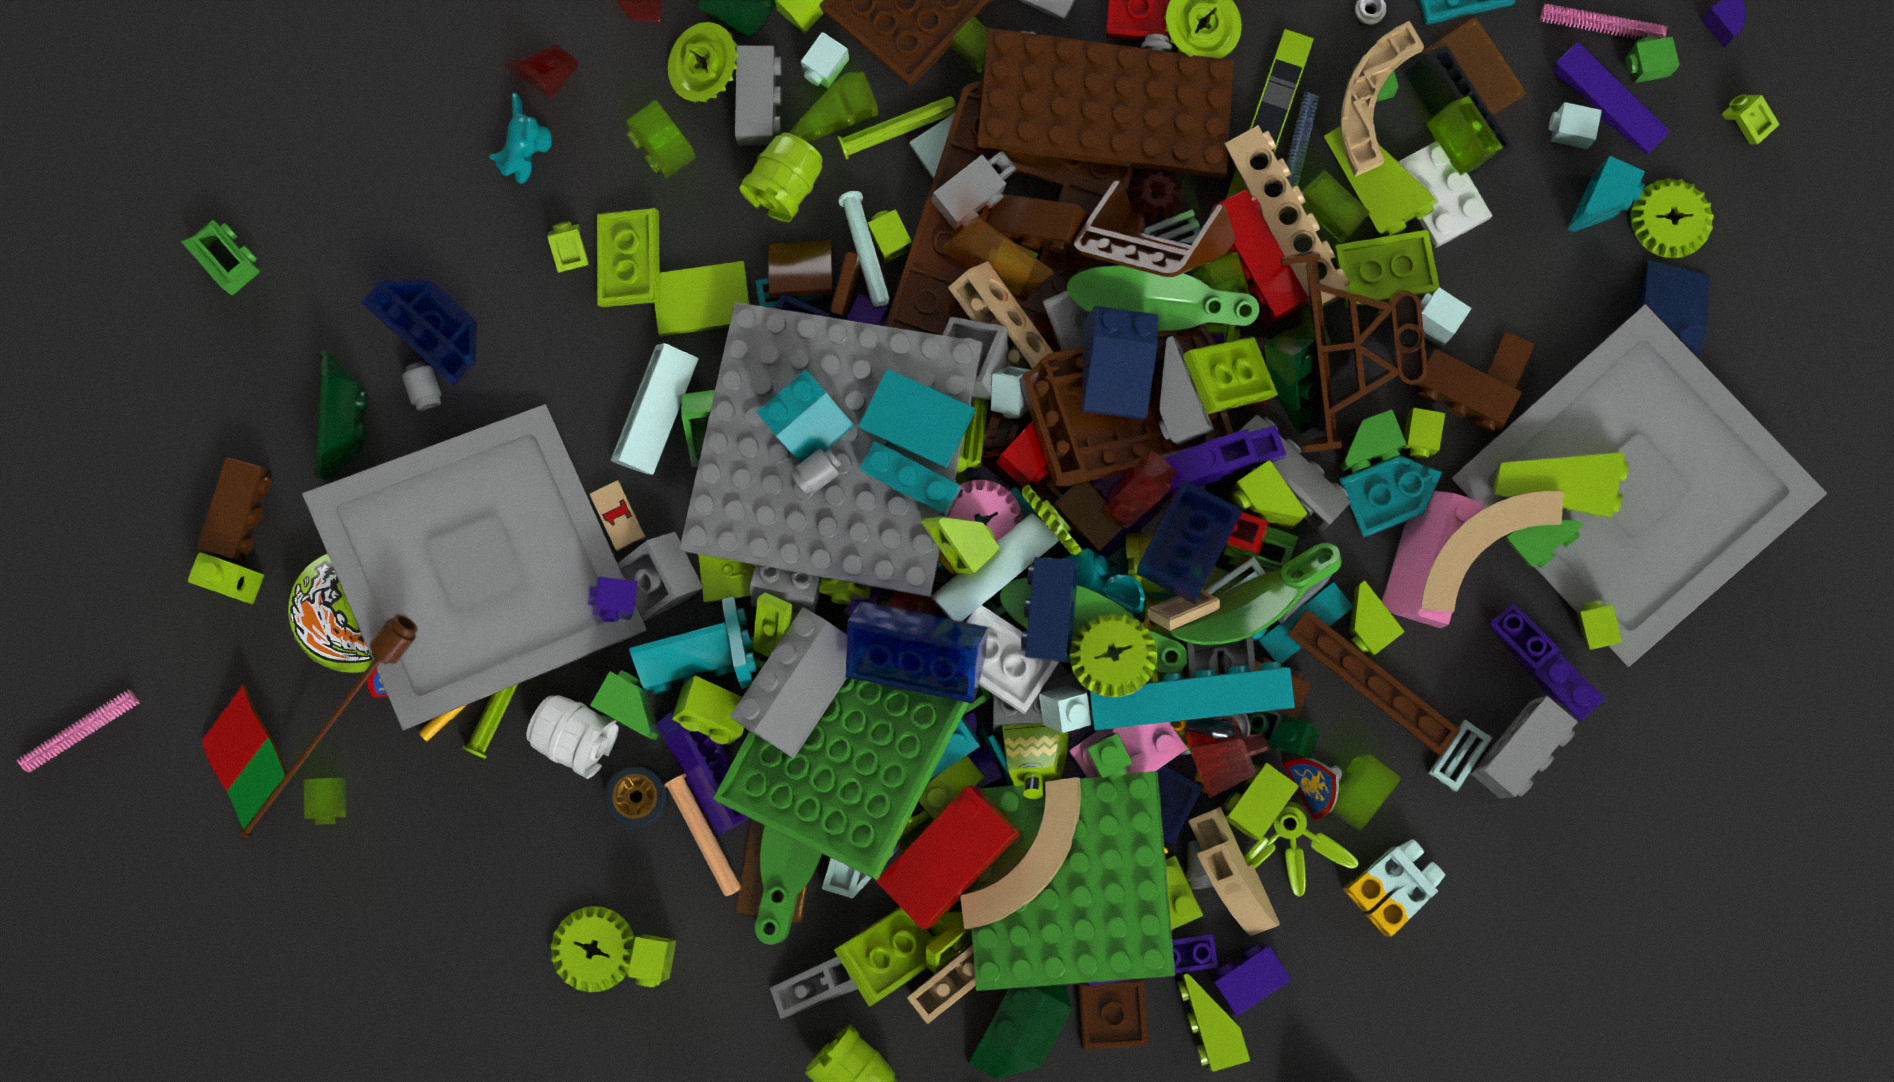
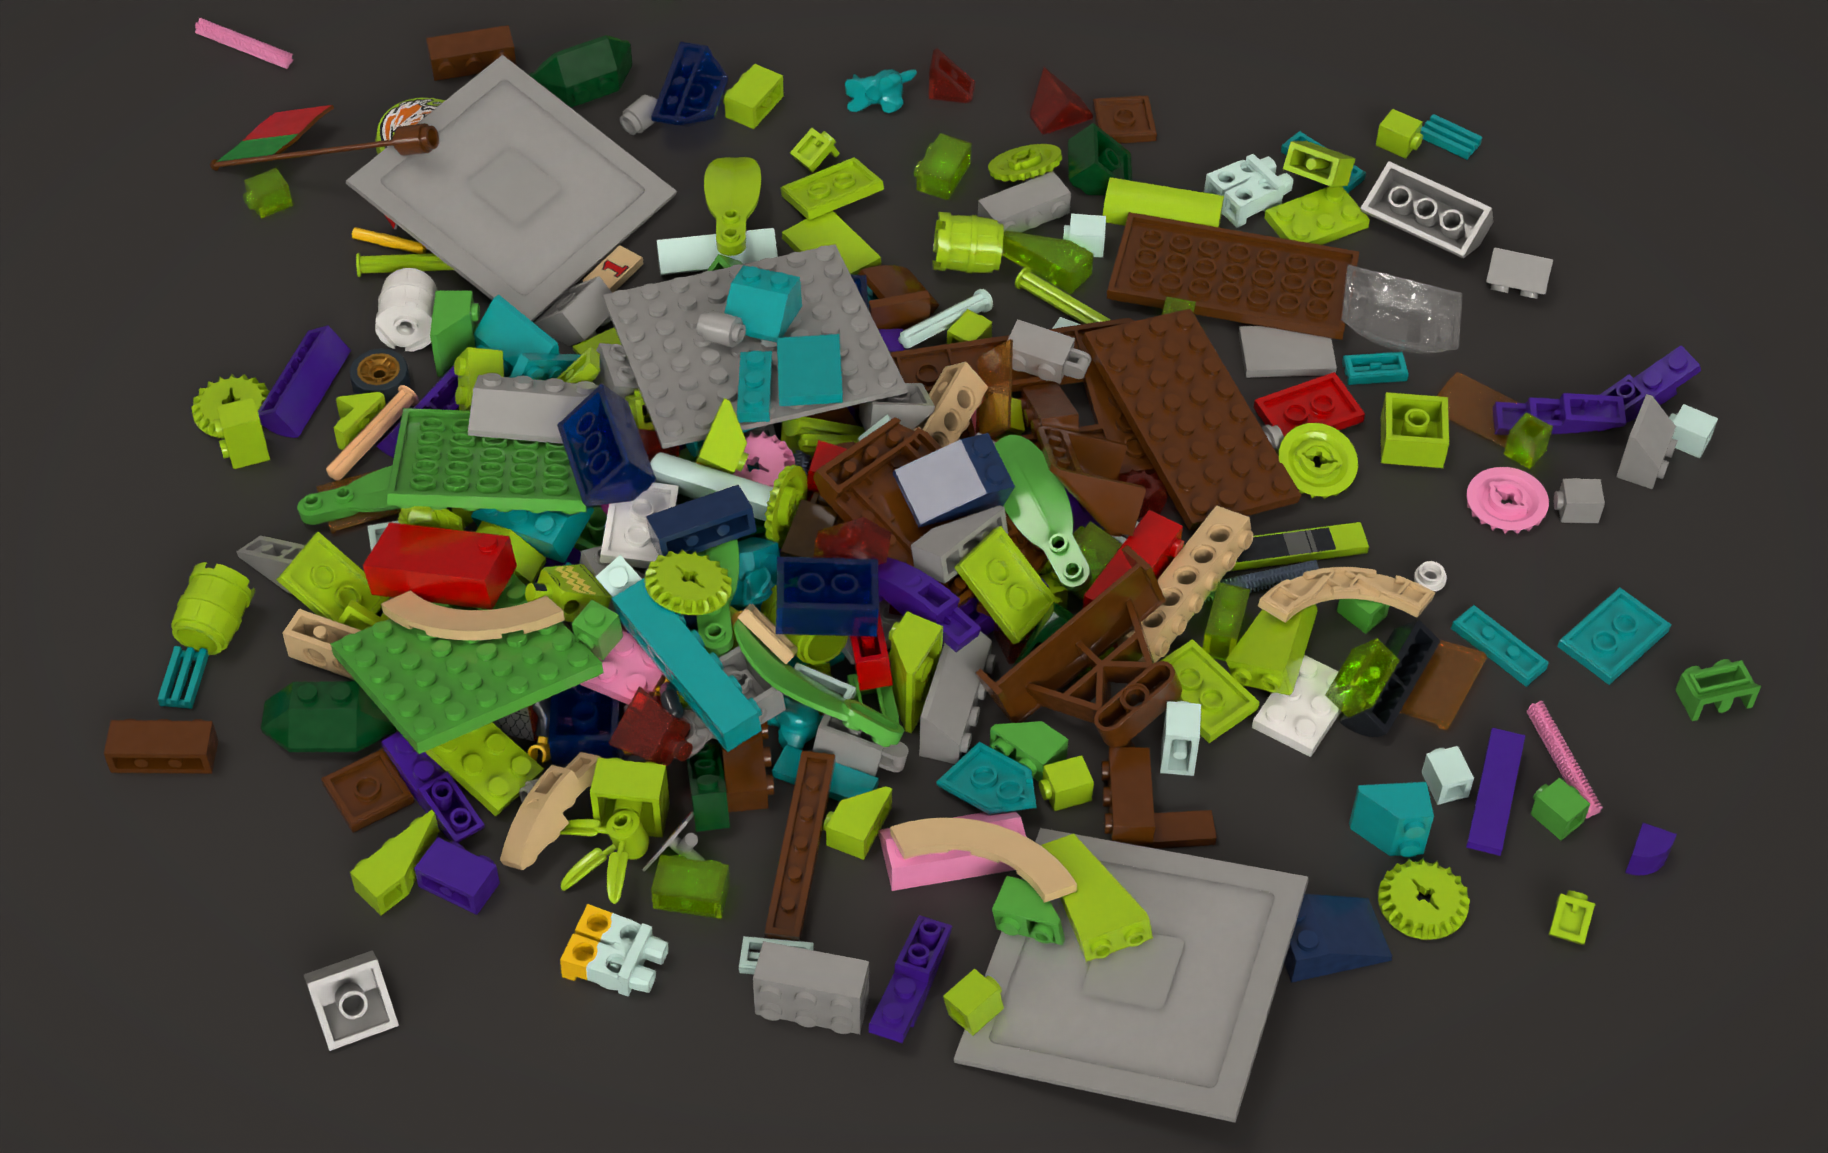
camera: 55 degrees right, 30 degrees down
(224, 576) = (412, 51): lime torso -> none
(459, 265) = (753, 96): none -> lime brick
(597, 358) = (732, 195): none -> lime plant
(603, 871) = (303, 382): none -> dark purple brick
(612, 599) = (537, 282): dark purple brick -> none
(676, 832) = (355, 414): none -> lime slope

